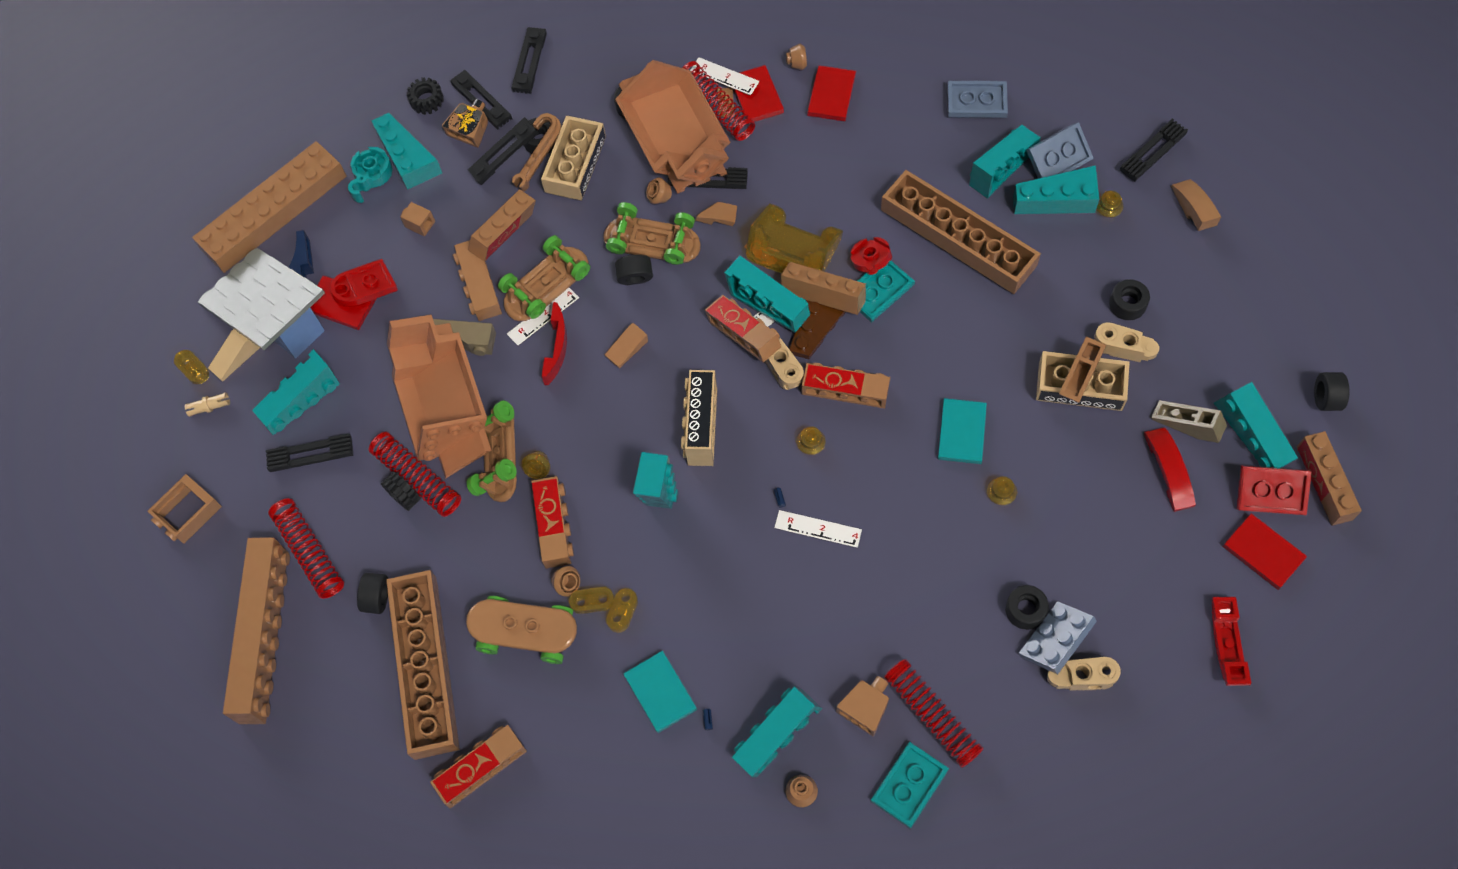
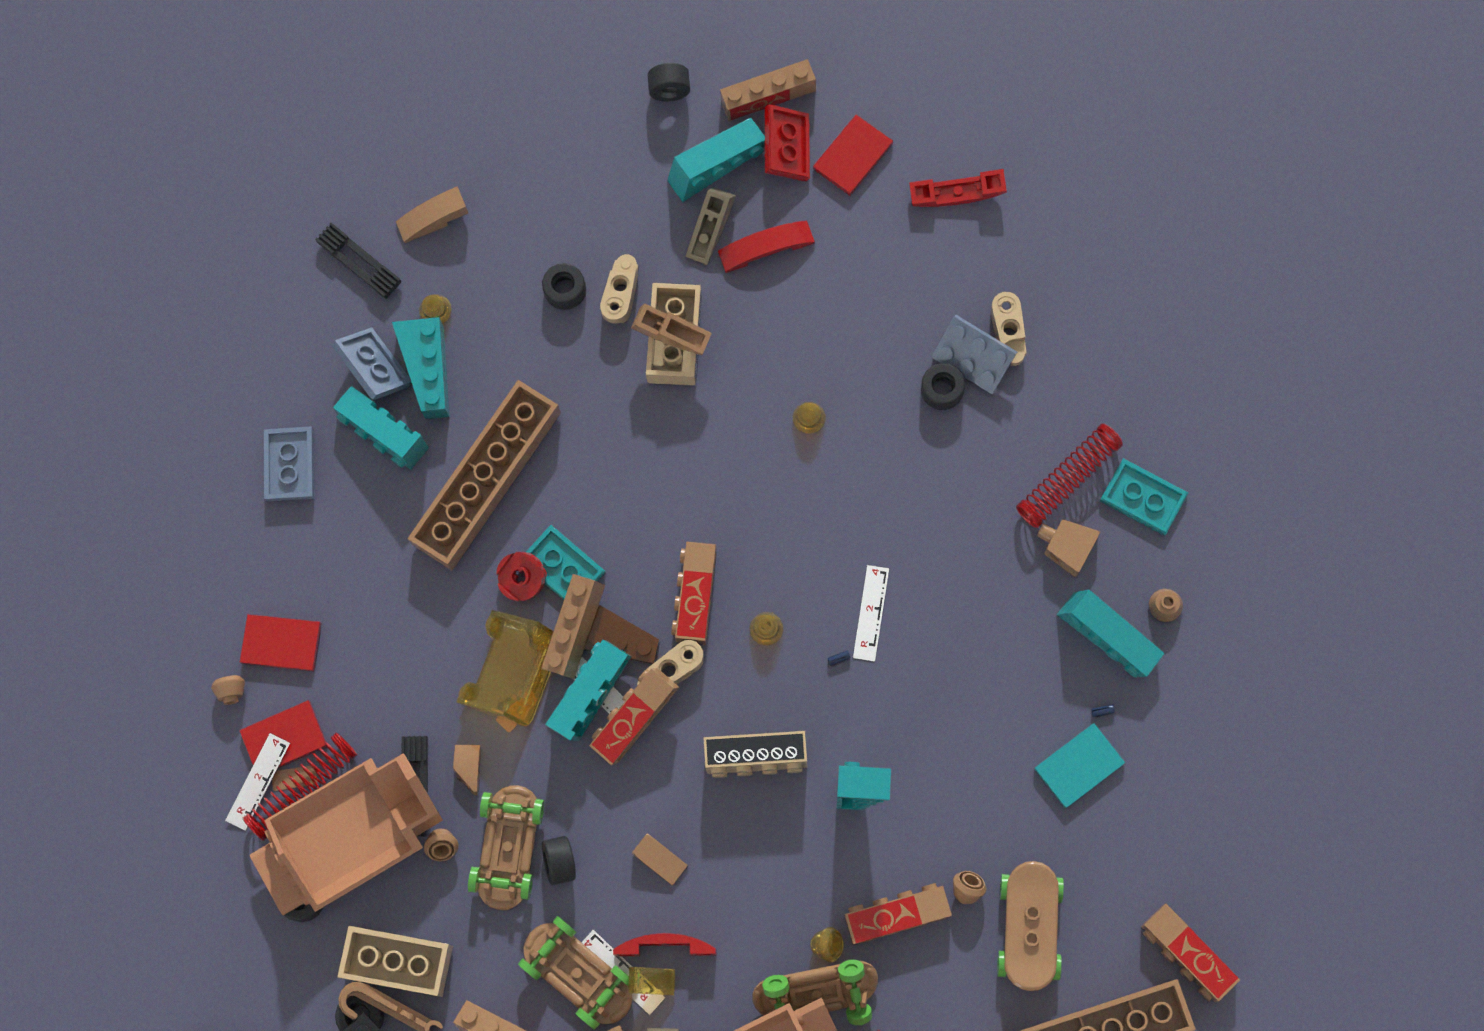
camera: 95 degrees left, 10 degrees up
(528, 330) = (651, 981): none -> clear yellow tile
(592, 600) = (986, 855): clear yellow plate -> none
(622, 609) = (991, 823): clear yellow plate -> none
(962, 431) = (740, 462): teal tile -> none

